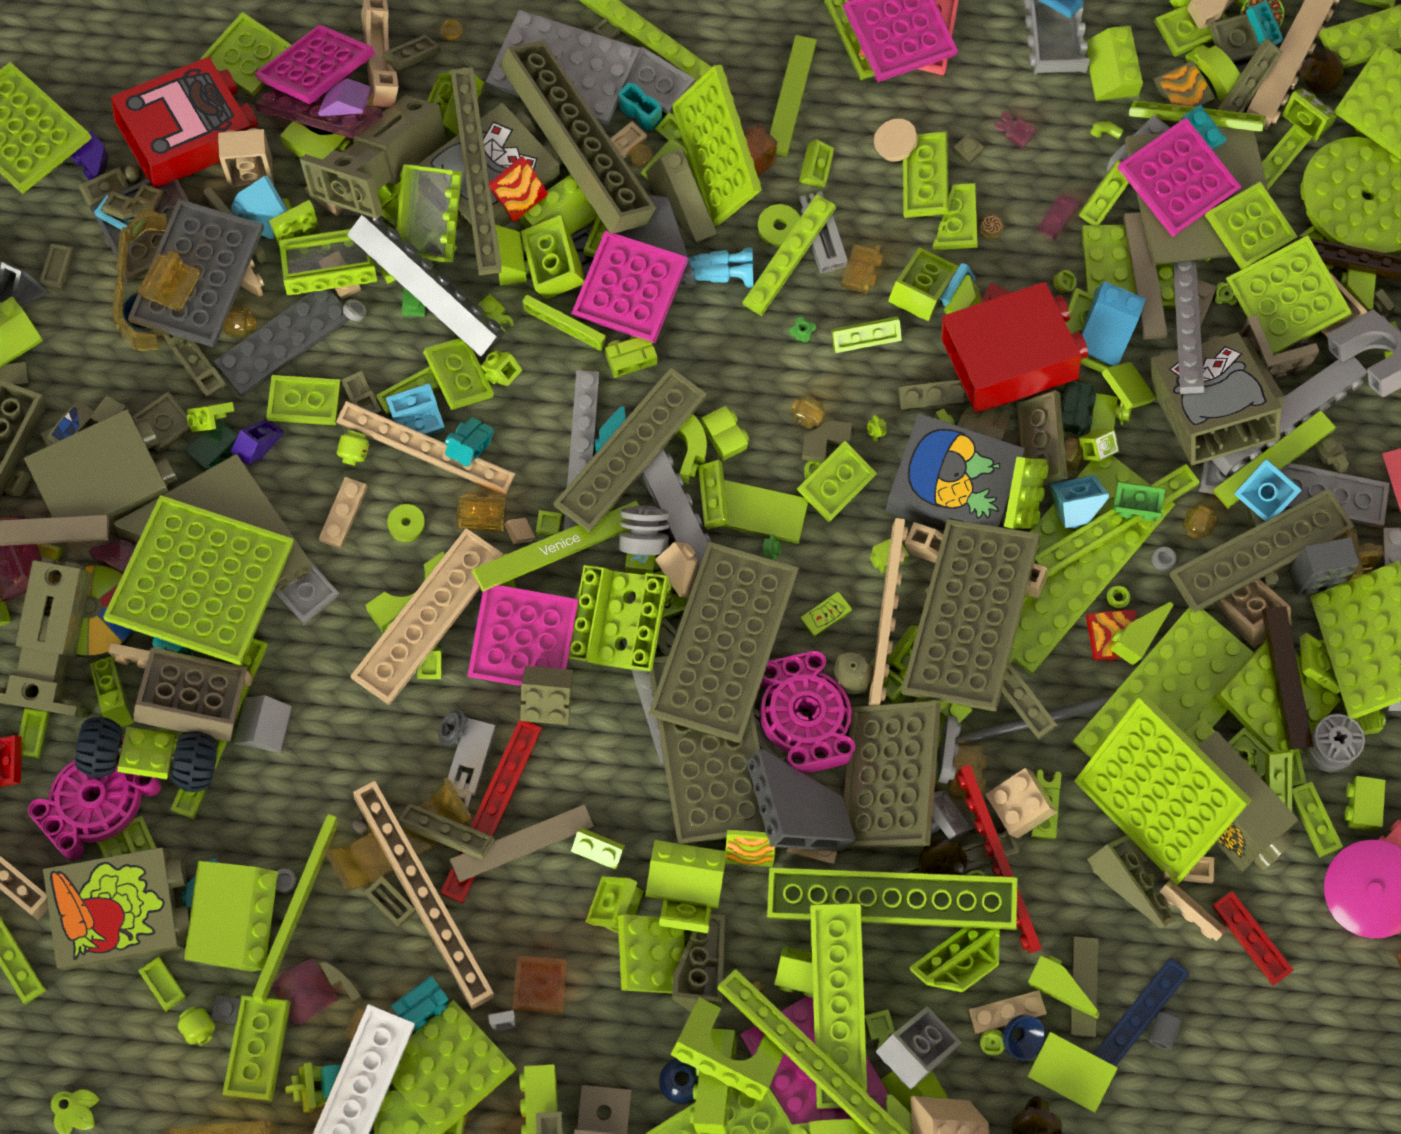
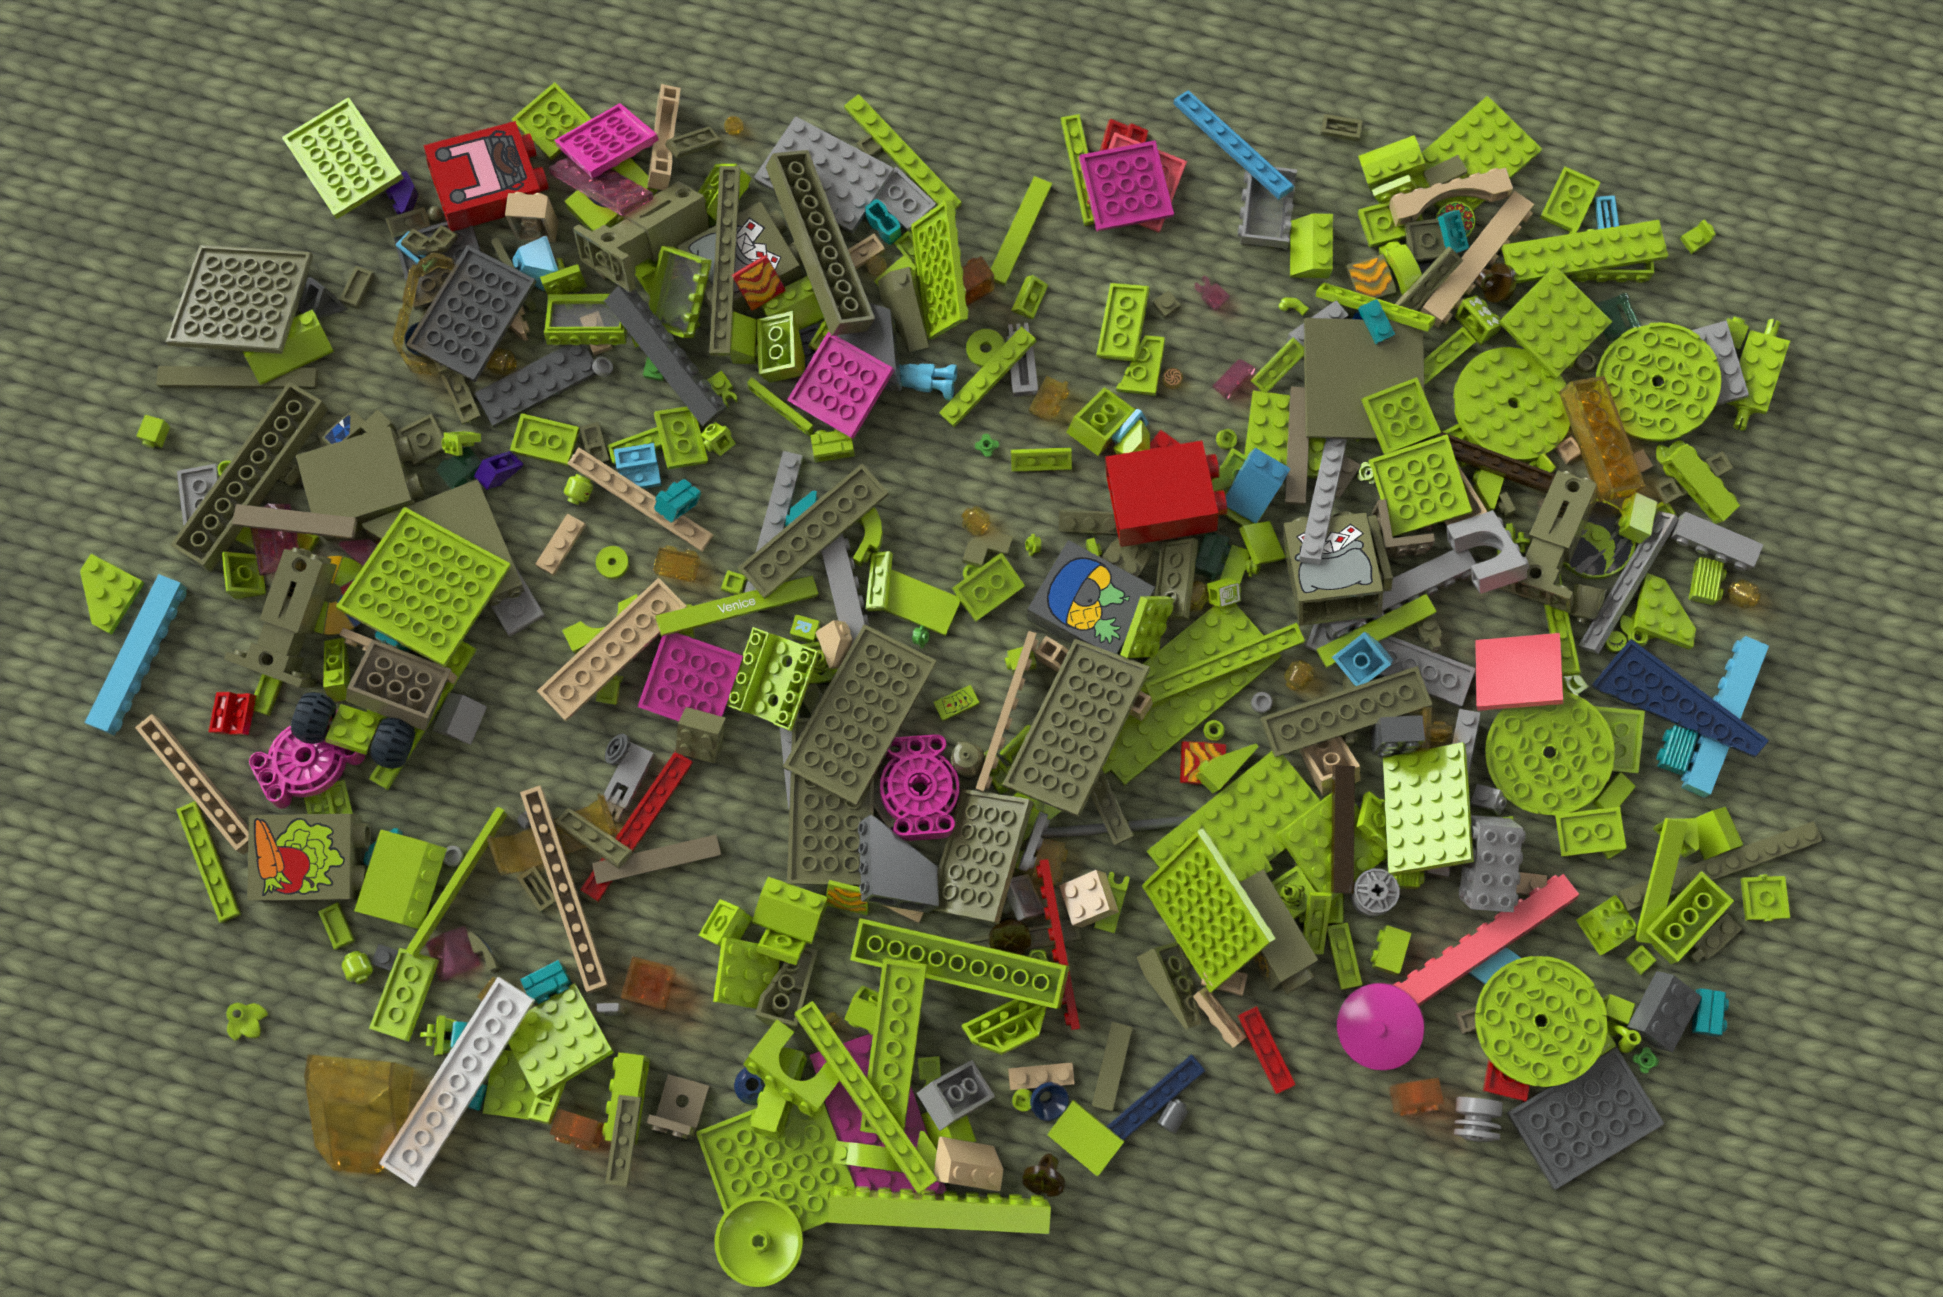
camera: 15 degrees right, 5 degrees up
(169, 281) = (446, 318): clear yellow bracket -> none
(345, 98) = (624, 178): medium lavender slope -> none
(519, 530) = (706, 585): tan tile -> none
(598, 848) = (720, 874): plate -> none
(644, 530) = (811, 604): light grey wheel -> none
(724, 432) = (899, 527): lime brick -> none
(895, 139) = (1103, 286): tan tile -> none
(1056, 982) = (1088, 1059): lime slope -> none
(1078, 500) = (1194, 639): medium azure slope -> none
(1138, 500) = (1245, 650): bright green bracket -> none
(1179, 177) = (1344, 362): dark pink plate -> none

